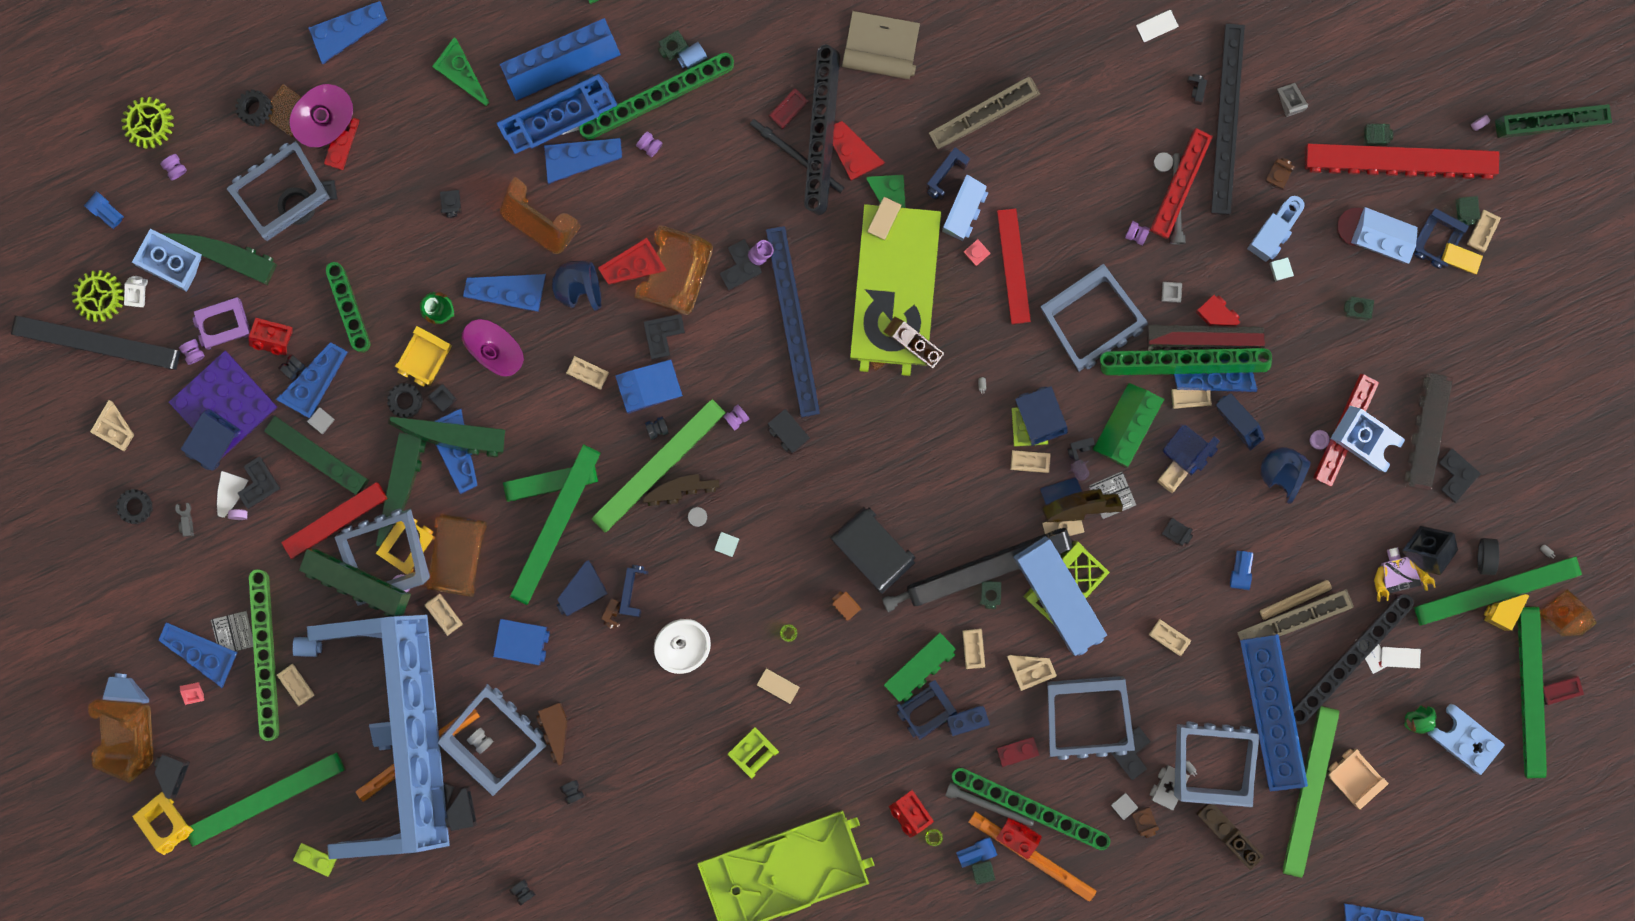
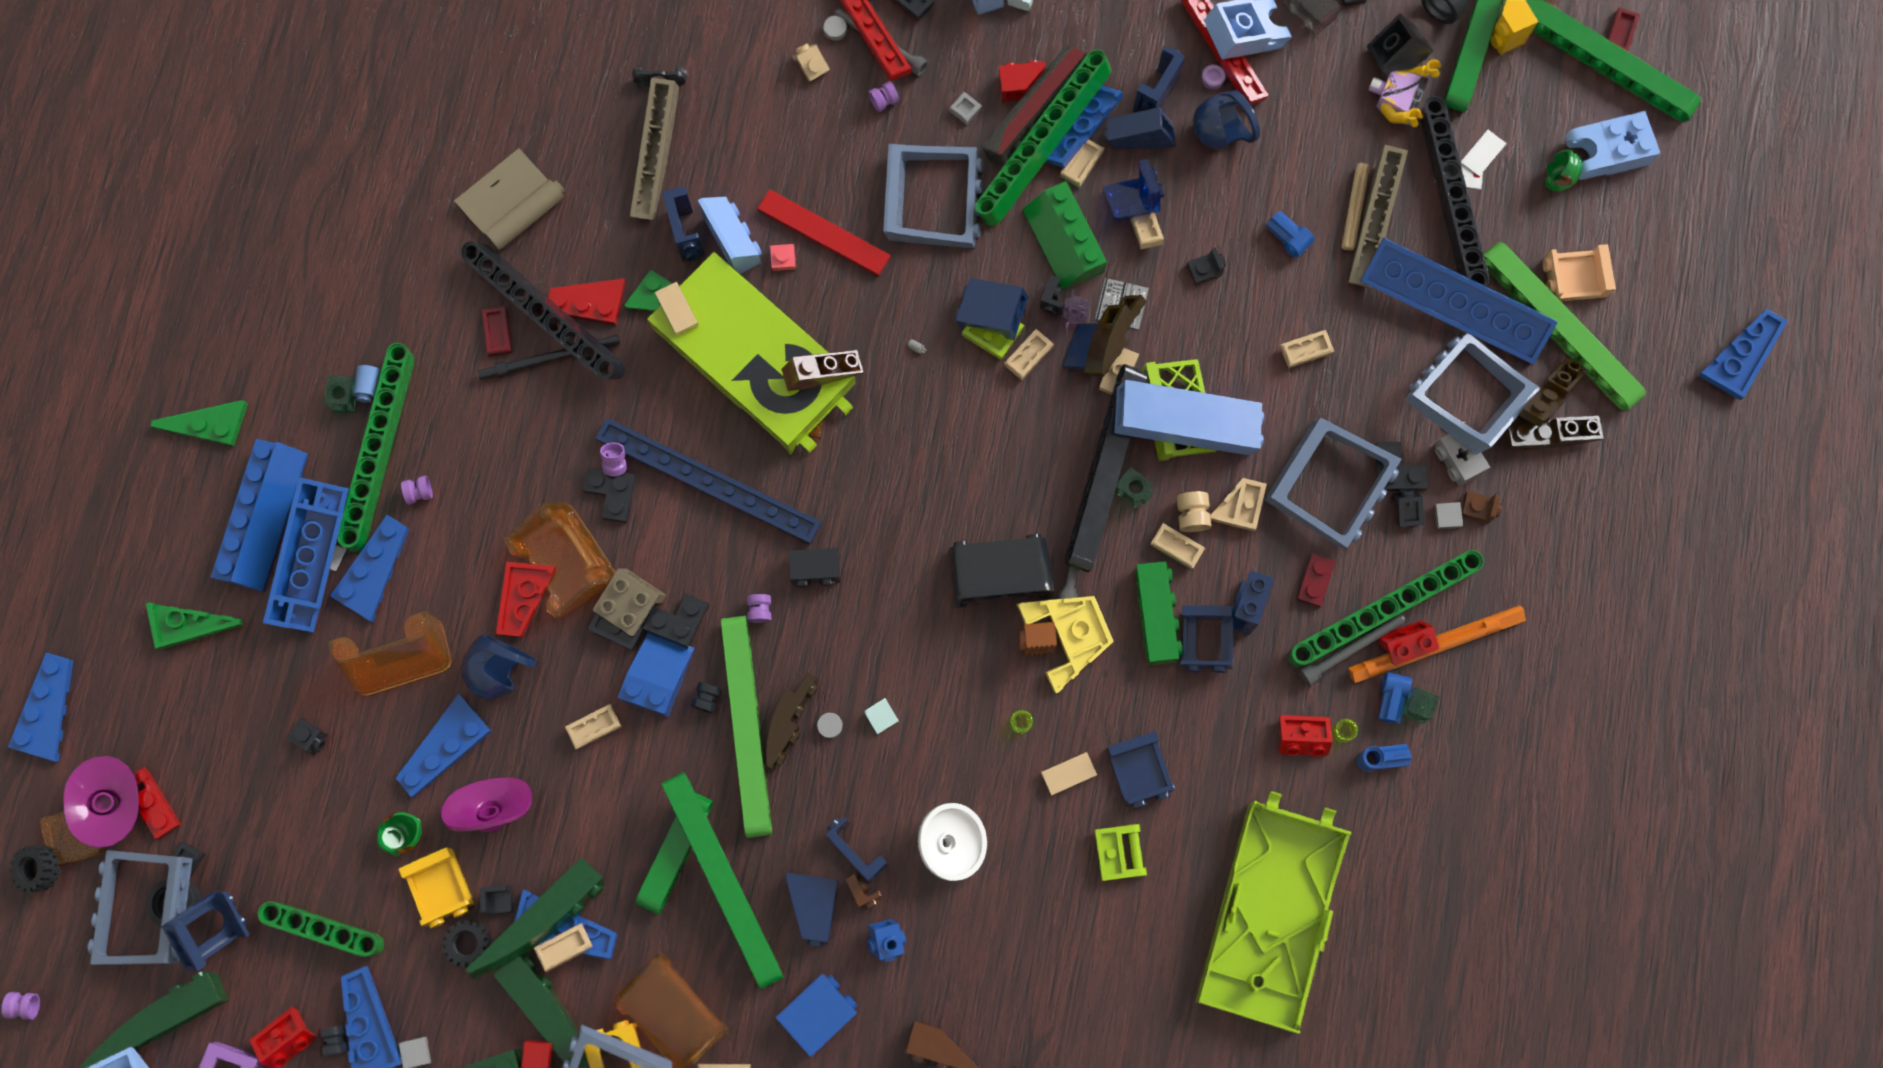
camera: 55 degrees left, 10 degrees down
(282, 234) = (182, 942): none -> dark blue panel
(445, 461) = (563, 947): none -> tan tile
(594, 650) = (886, 940): none -> blue brick
(679, 333) = (627, 601): none -> dark tan bracket
(690, 378) = (679, 627): none -> black plate
(813, 728) = (1140, 770): none -> dark blue panel
(872, 626) = (1079, 629): none -> light yellow wing
(934, 874) = (1385, 757): none -> blue piece
(1003, 643) = (1193, 509): none -> tan wheel
(1047, 88) = (643, 78): none -> black piece
(1109, 777) = (1409, 508): none -> black bracket
(1126, 165) = (810, 61): none -> tan bracket
(1255, 817) = (1553, 393): none -> dark brown slope
(1265, 415) = (1170, 66): none -> dark blue panel

